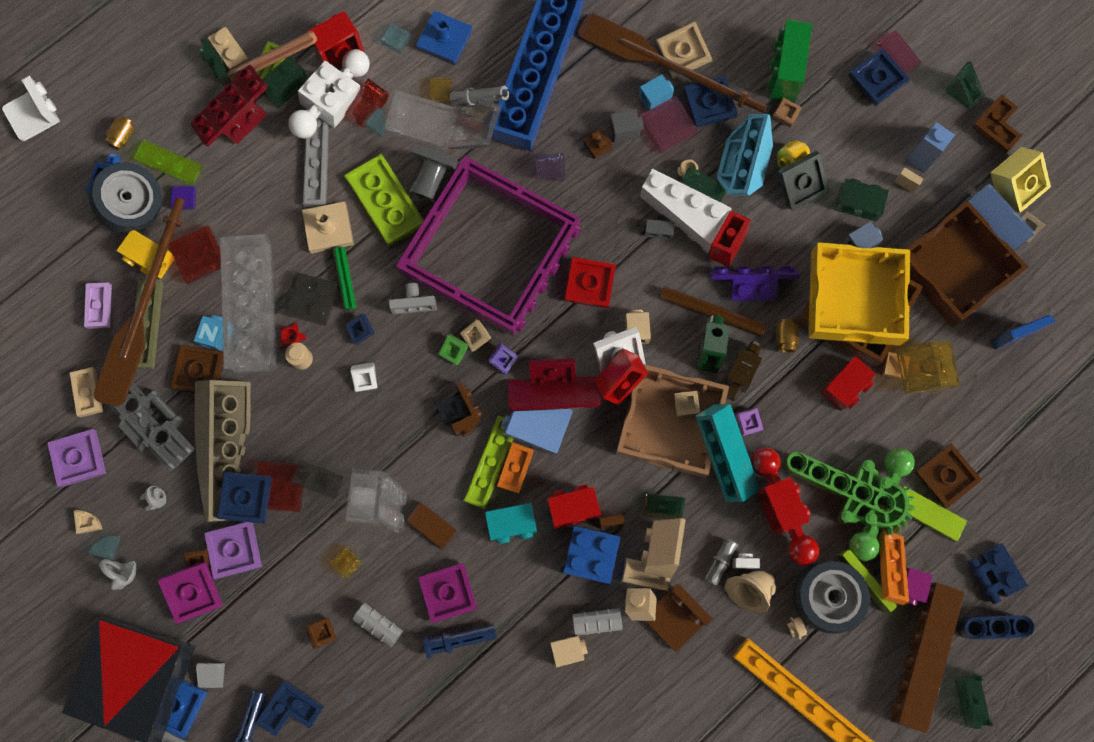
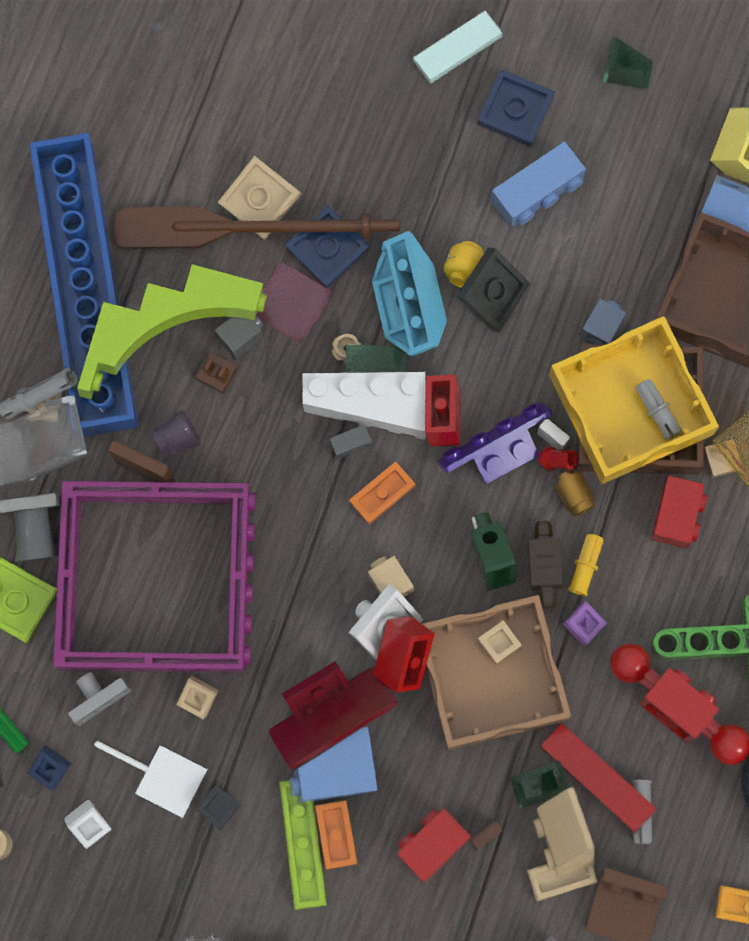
camera: 25 degrees left, 0 degrees up
(429, 377) = (168, 779): none -> white piece
(453, 349) = (179, 730): bright green tile -> none
(466, 426) = (248, 816): reddish brown bracket -> none
(502, 358) = (246, 708): dark purple tile -> none
(511, 523) = (368, 904): teal brick -> none
(518, 169) = (140, 463): none -> reddish brown tile
(554, 82) = (125, 330): none -> lime arch
(590, 282) = (302, 555): red plate -> none
(591, 555) = (485, 890): blue brick -> none
(640, 604) = (575, 916): tan brick -> none
(655, 92) = (257, 266): dark azure brick -> none
(662, 271) = (382, 493): none -> orange plate
(704, 525) = (598, 778): none -> red tile
(710, 309) = (469, 509): reddish brown axle -> none
(728, 452) = (580, 677): teal brick -> none
(745, 561) = (670, 795): white plate -> none
(751, 590) = (696, 826): tan piece -> none
(769, 385) = (586, 564): none -> yellow axle
(785, 307) = (551, 458): none -> red pin
(787, 112) = (427, 210): medium nougat tile -> none
(790, 60) = (397, 147): green brick -> none
(792, 292) = (553, 435): none -> white tile
(861, 22) = (457, 47): none -> light aqua tile
(861, 199) = (574, 274): clear green brick -> none
(868, 132) = (538, 185): none -> medium blue brick
(872, 308) = (658, 409): none -> light grey axle
(899, 51) = (523, 62): clear pink tile -> none
(908, 180) = (618, 220): tan tile -> none
(930, 147) = (623, 167): medium blue slope -> none
(994, 126) = (683, 98): reddish brown plate -> none

